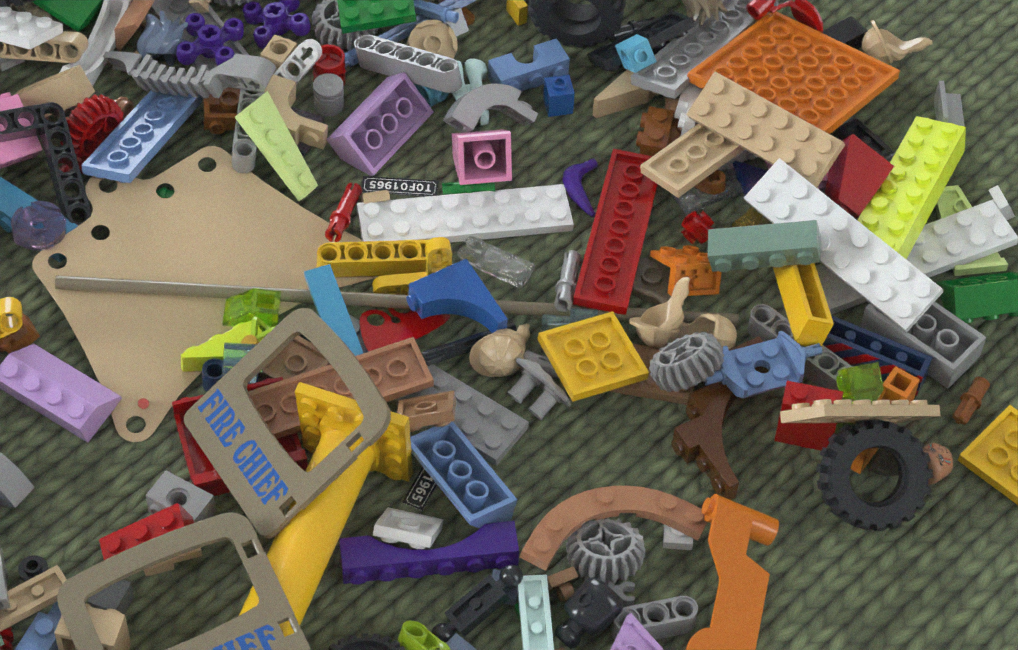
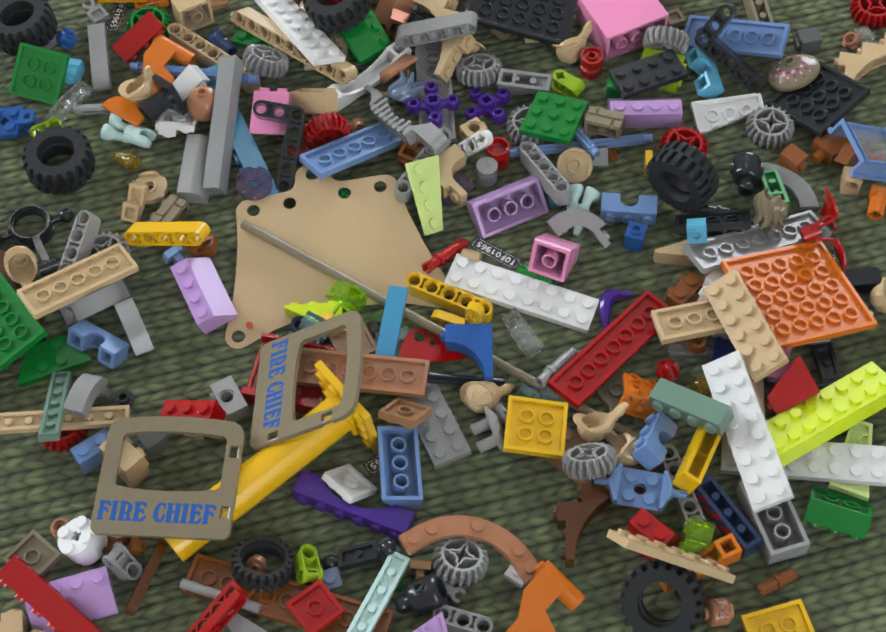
camera: 35 degrees right, 5 degrees up
(736, 302) = (649, 447): none -> medium blue arch

